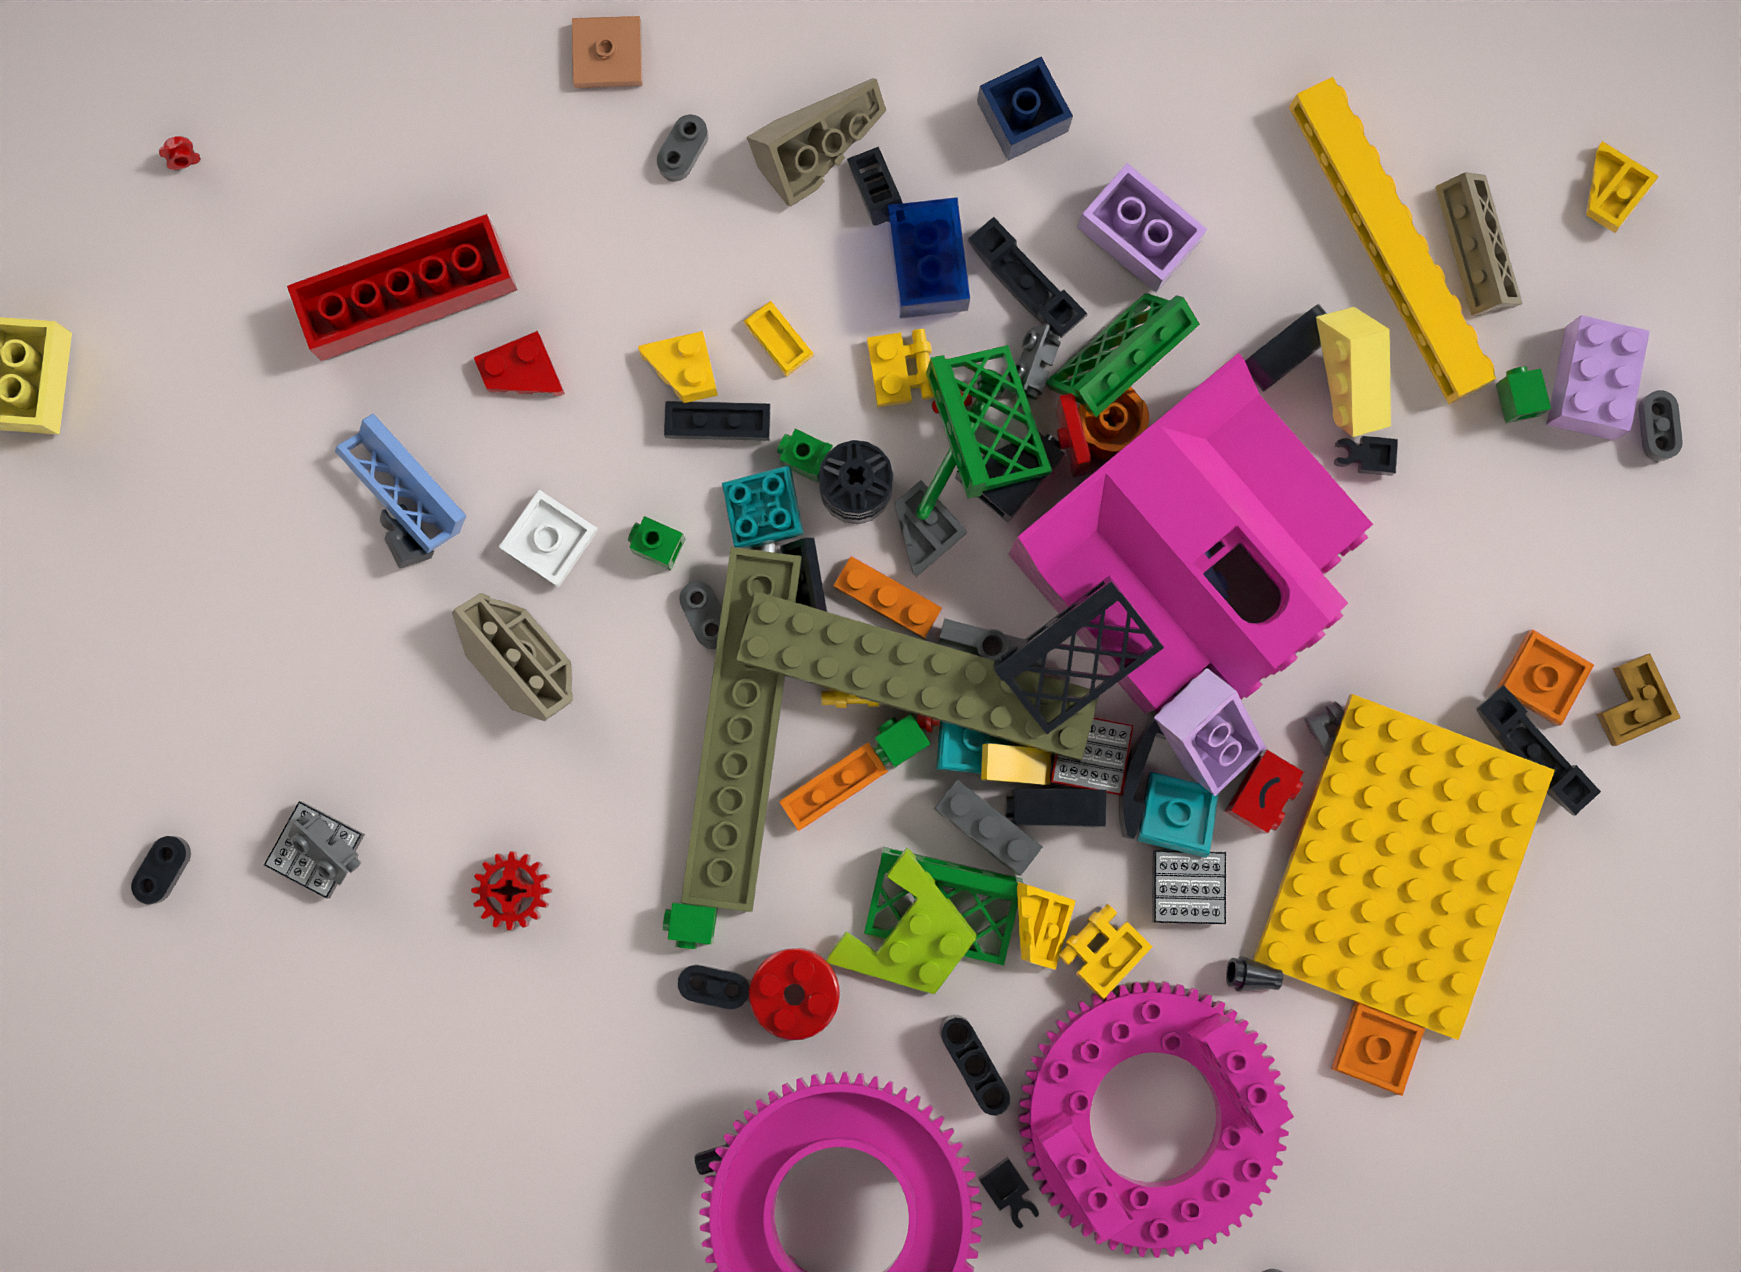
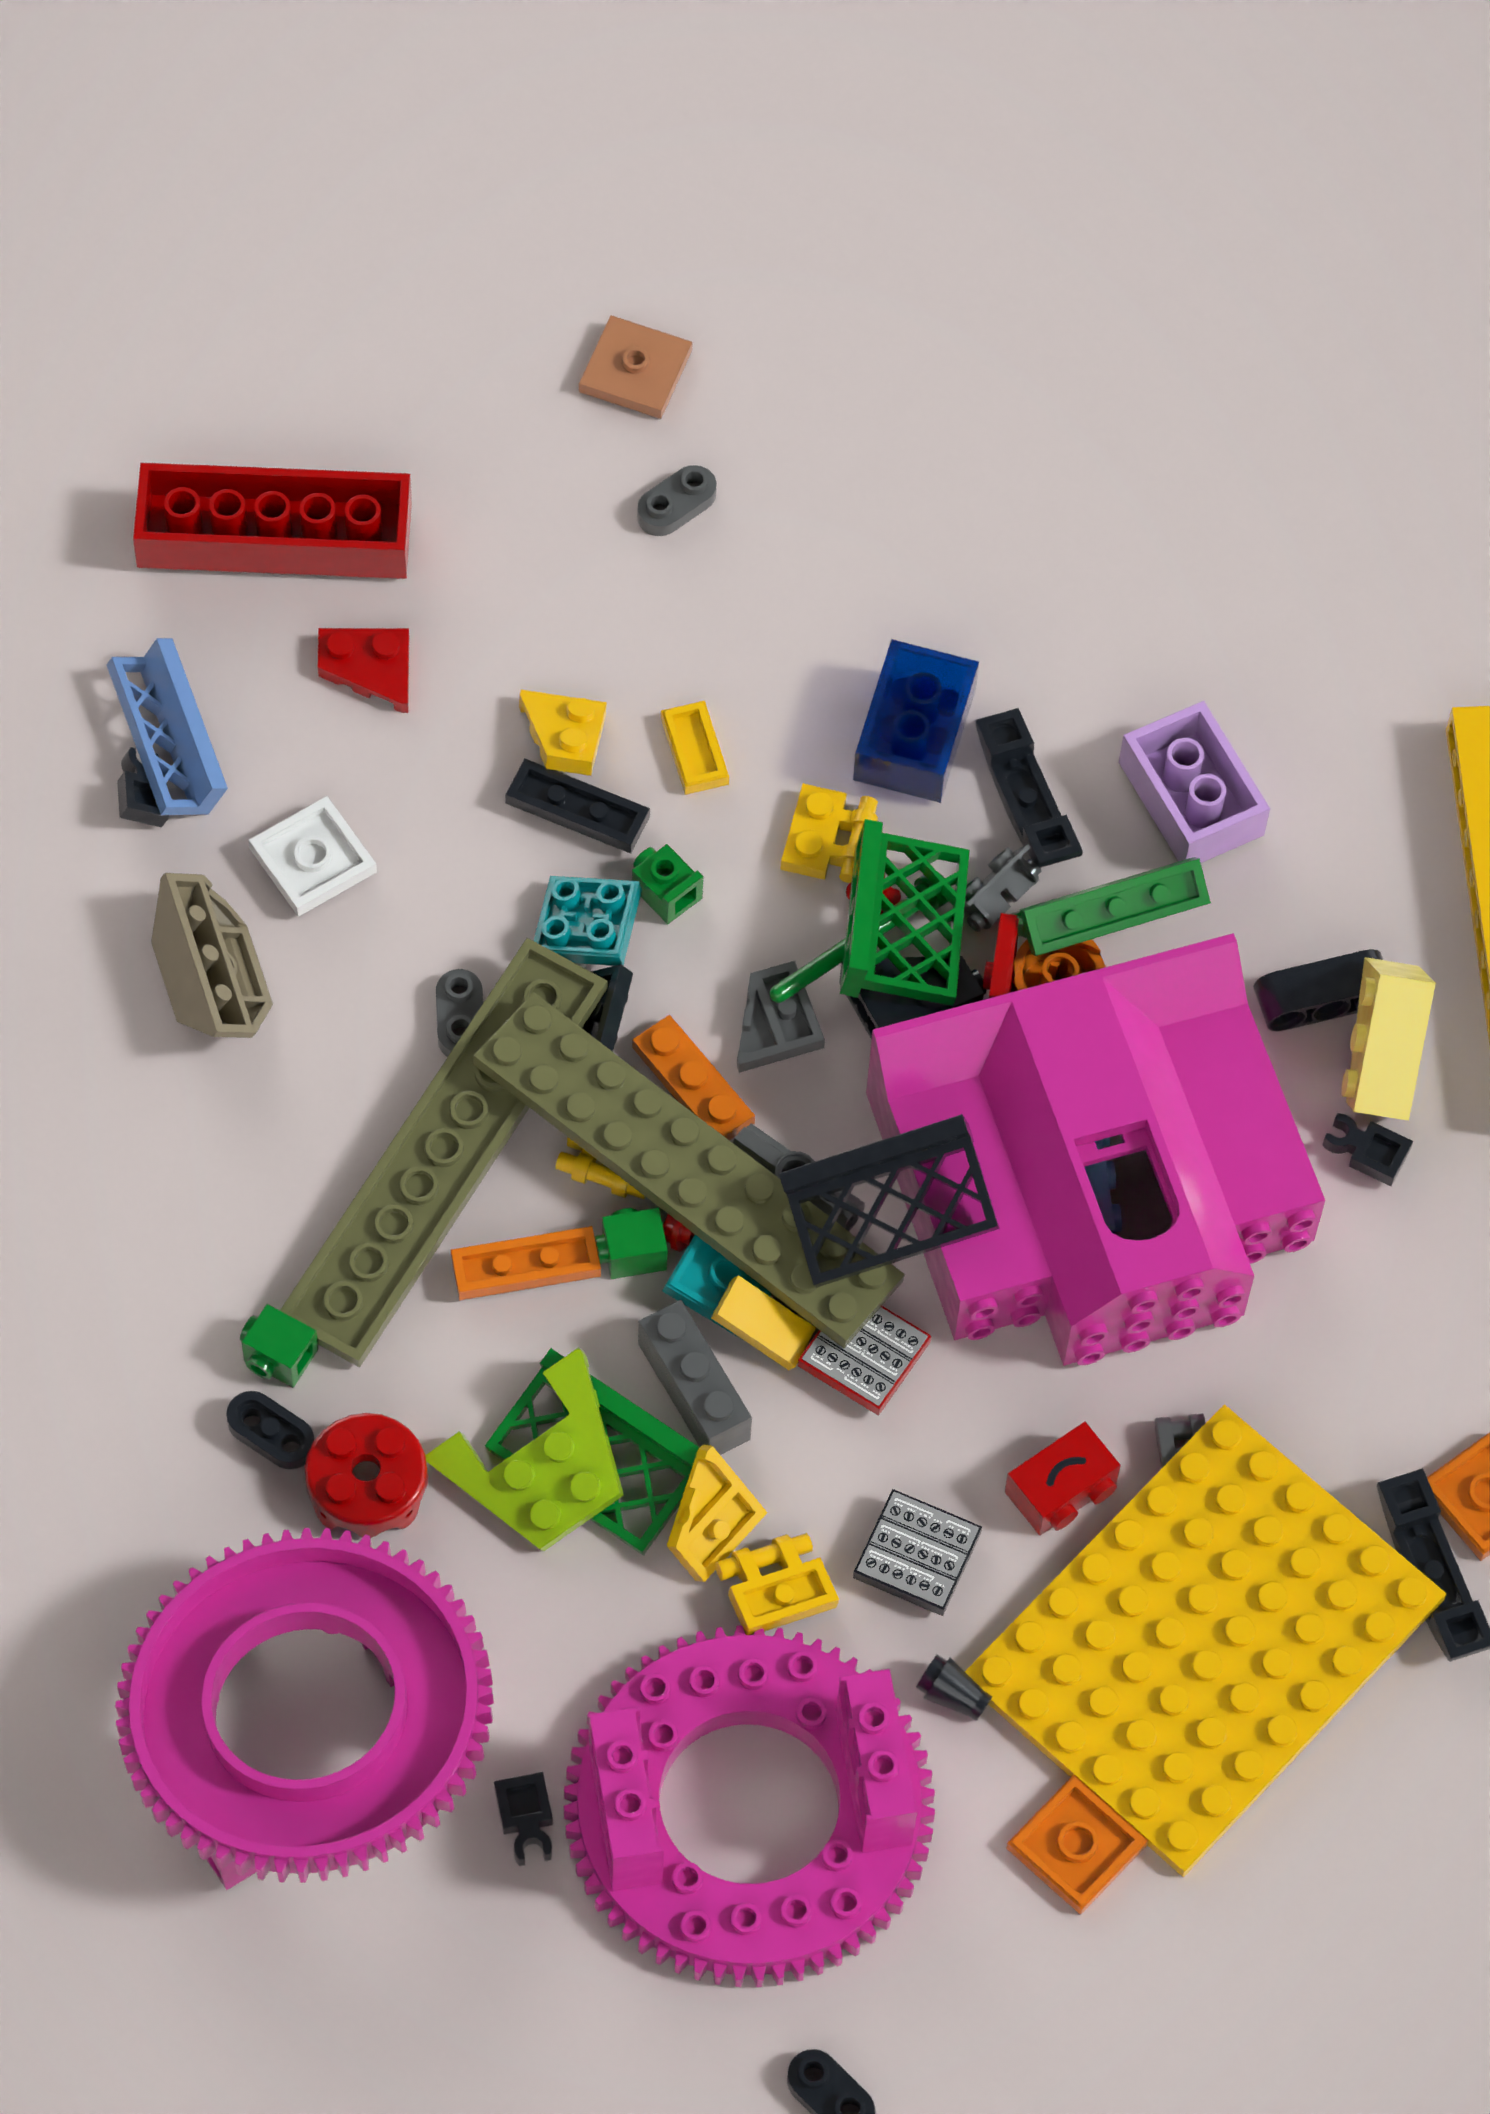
camera: 25 degrees right, 20 degrees down
(179, 153) = (82, 288): red plate -> none
(513, 875) = (84, 1240): red gear -> none
(656, 542) = (440, 909): green brick -> none
(807, 143) = (827, 550): dark tan wedge -> none
(855, 502) = (712, 929): black wheel -> none
(877, 205) = (889, 621): black slope -> none
(987, 1077) = (545, 1625): black beam -> none
(1024, 108) = (1109, 603): dark blue brick -> none
(1057, 807) = (795, 1389): black slope -> none
(1129, 810) = (961, 1351): black slope -> none
(1178, 815) = (941, 1461): teal plate -> none
(1210, 731) = (1019, 1363): lavender brick -> none

